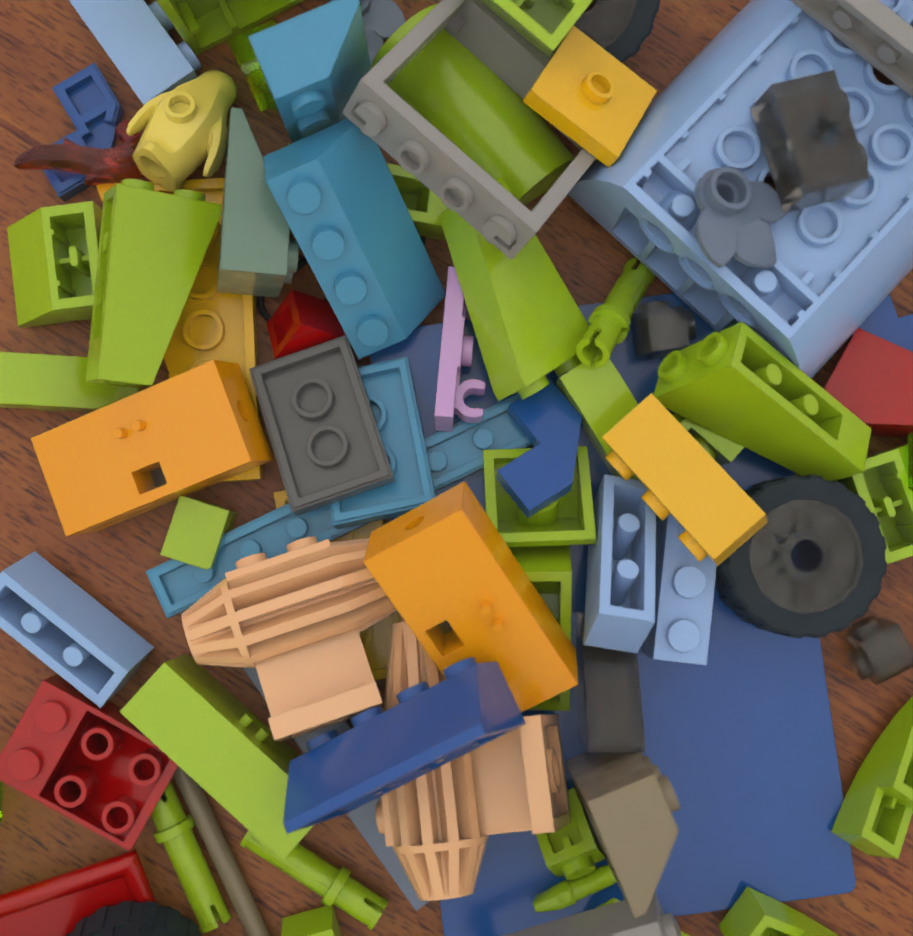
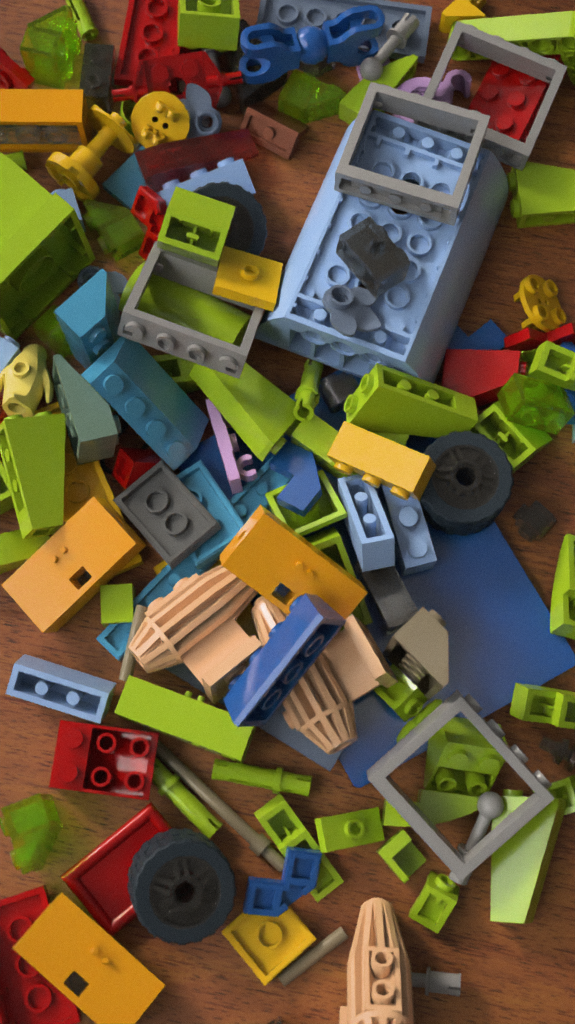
camera: 20 degrees left, 10 degrees down
(175, 635) = (129, 661): none -> dark tan piece

